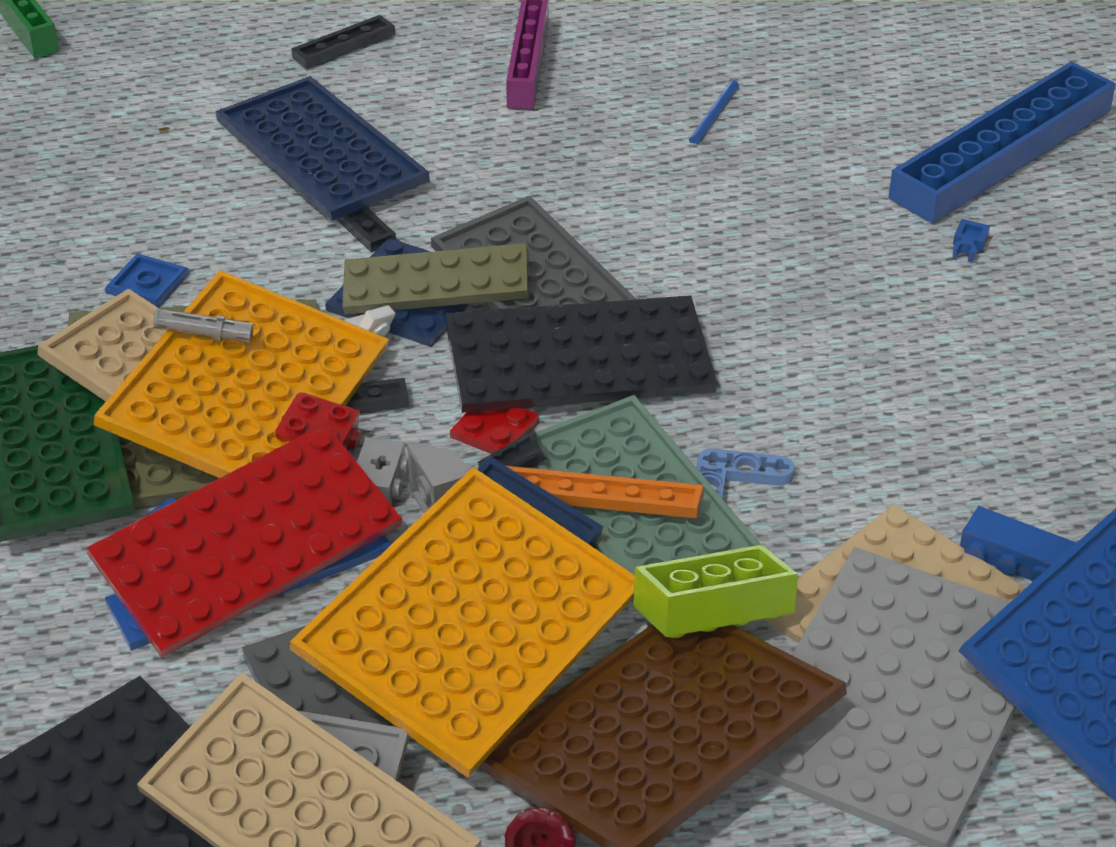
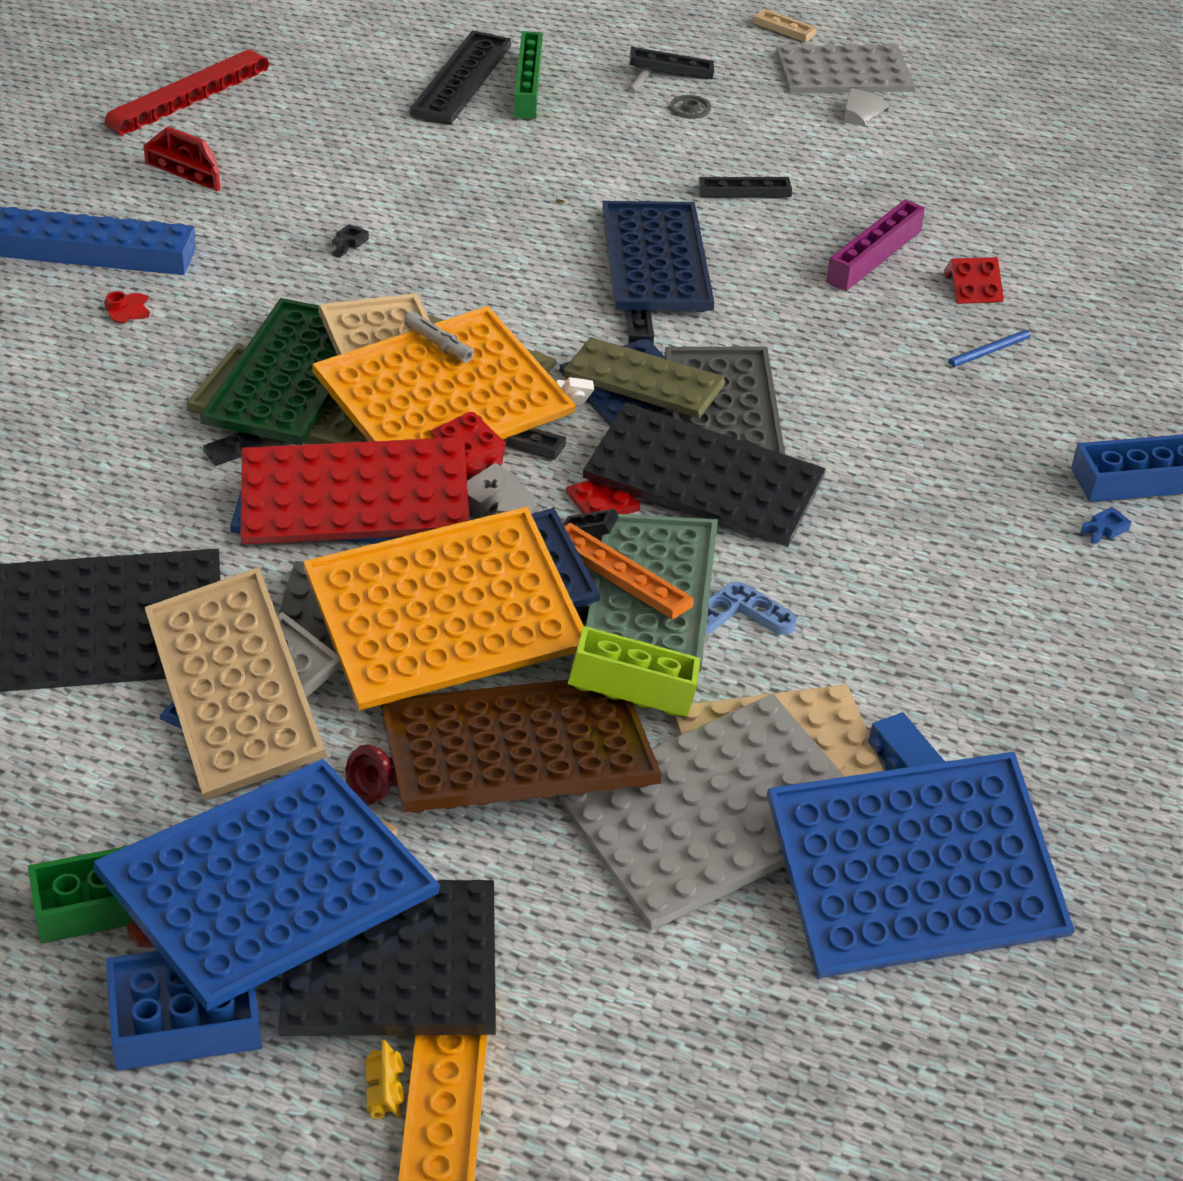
camera: 30 degrees right, 0 degrees up
(48, 554) = (230, 447): none -> black plate
(148, 278) = (453, 298): blue tile -> none
(646, 49) = (975, 279): none -> red bracket

